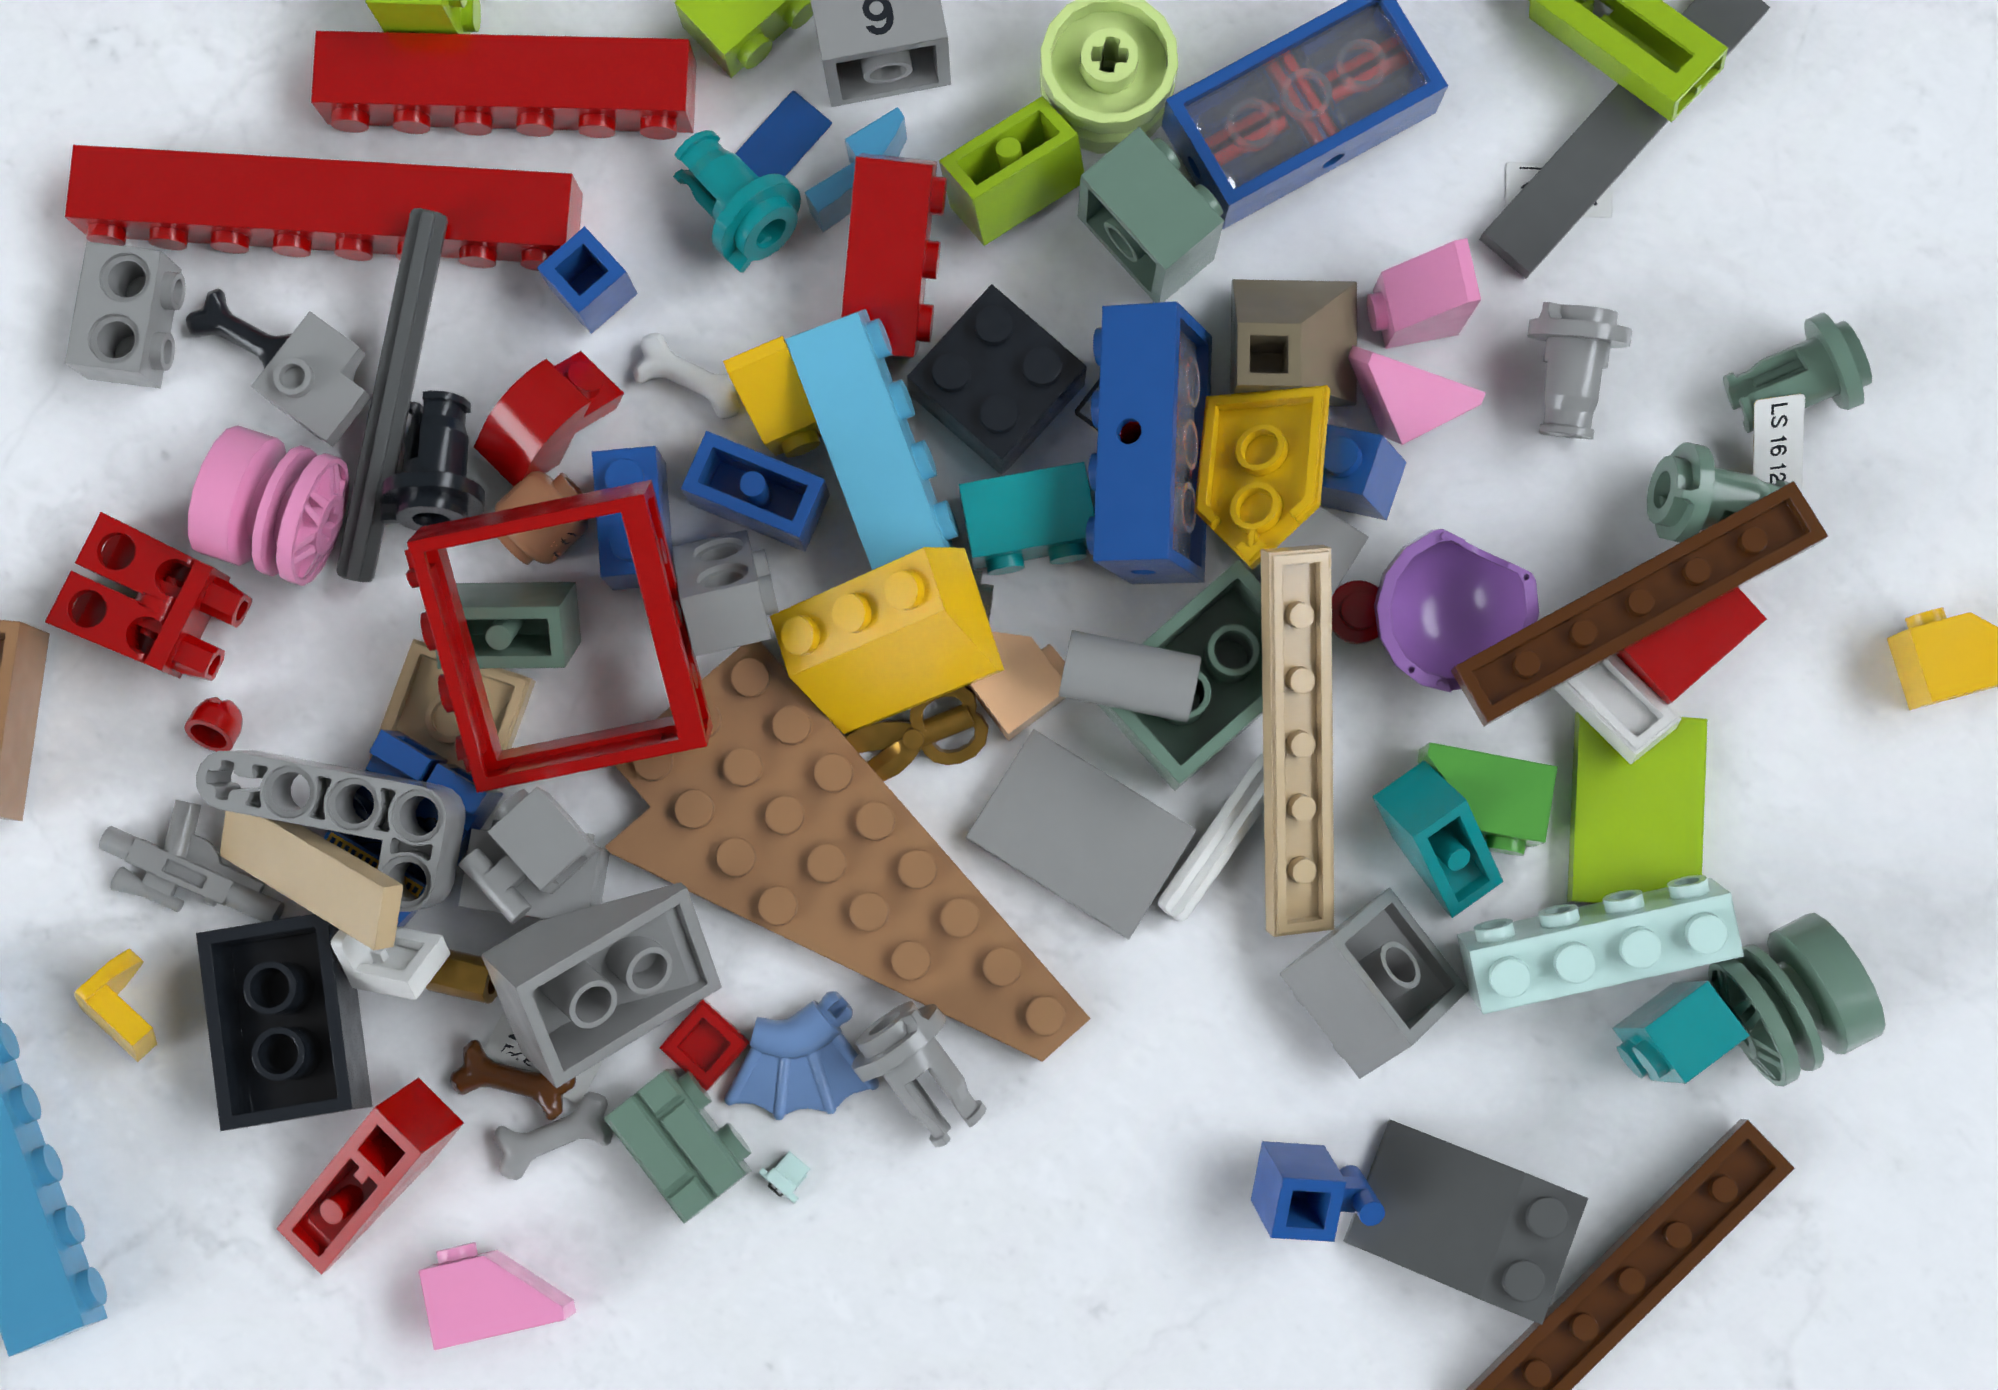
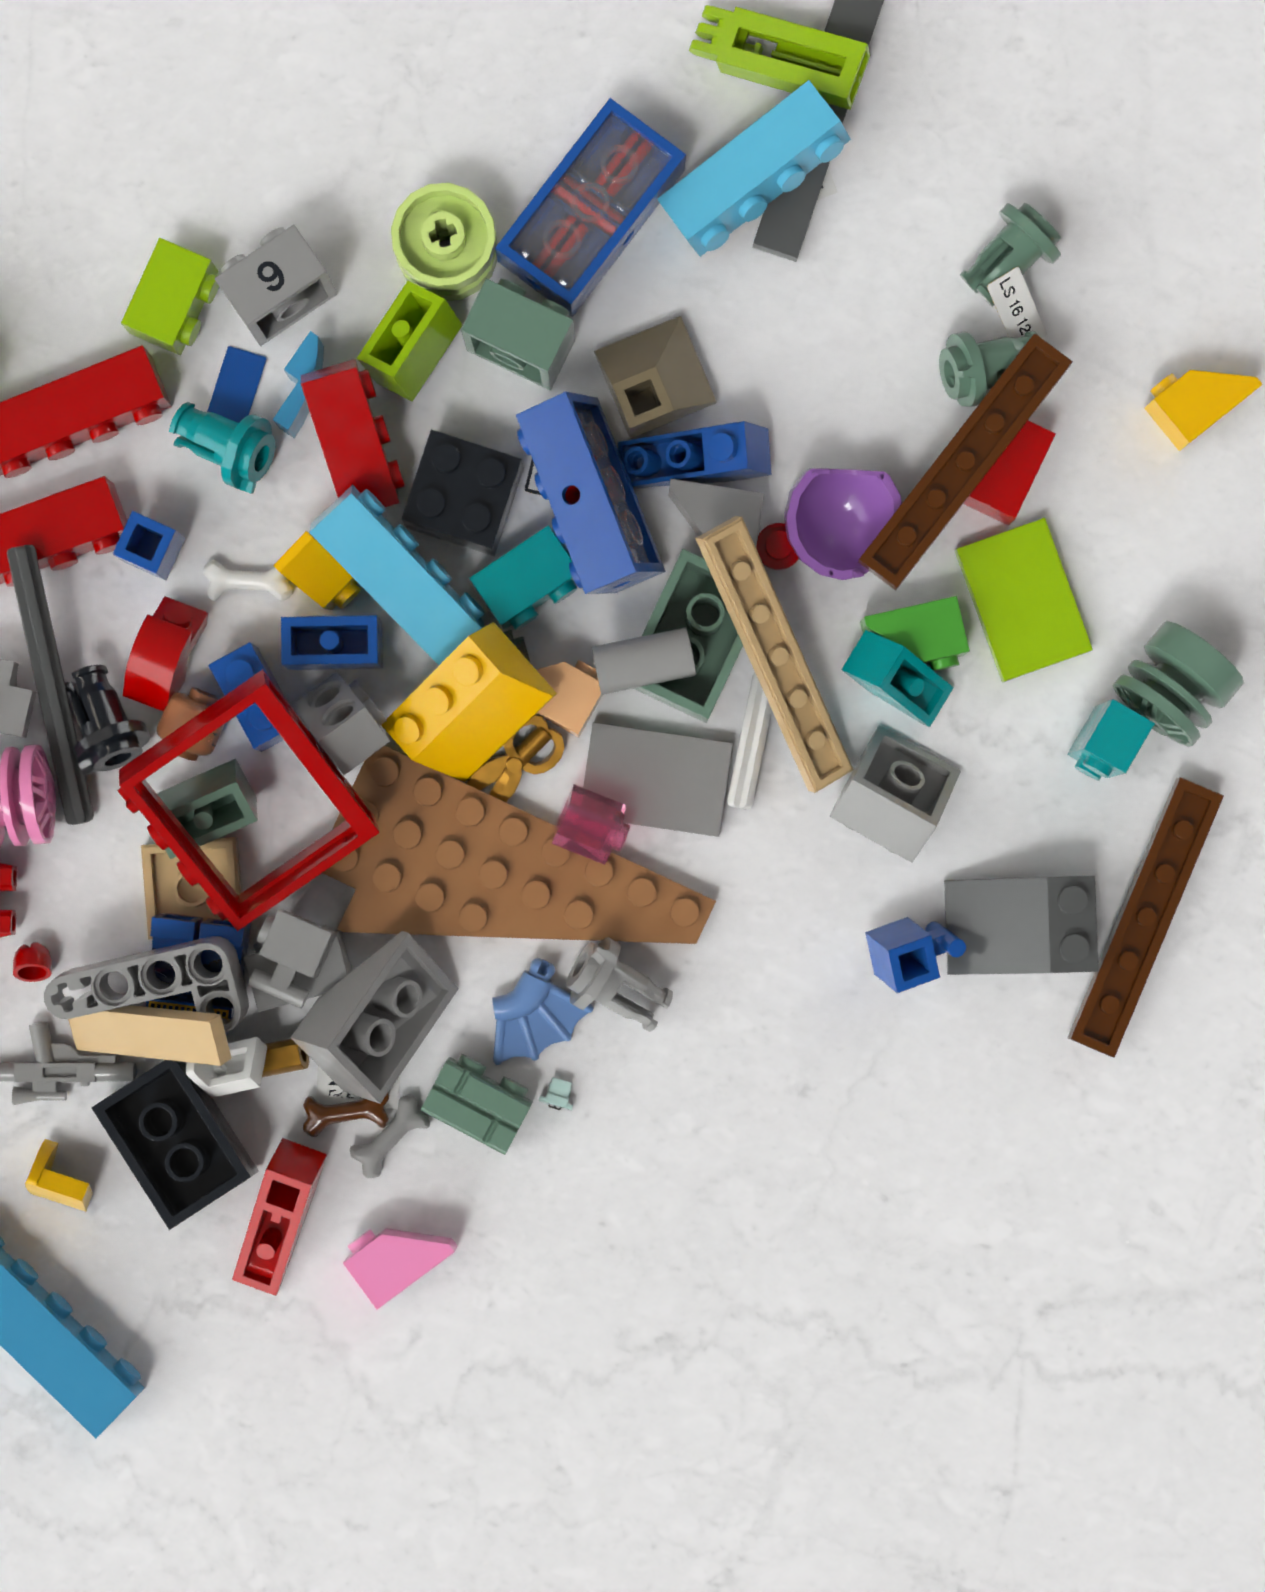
camera: 30 degrees left, 5 degrees up
(705, 1044) = (465, 1031): red tile -> none
(975, 854) = (591, 825): none -> clear pink brick
(1261, 465) = (670, 476): yellow tile -> none
(1409, 399) = (751, 383): bright pink slope -> none
(1425, 296) = (731, 308): bright pink slope -> none
(1526, 140) = (755, 169): none -> medium azure brick
(1576, 353) = (853, 306): light grey piece -> none
(1599, 943) = (1033, 703): light aqua brick -> none
(1620, 707) = (983, 536): white tile -> none

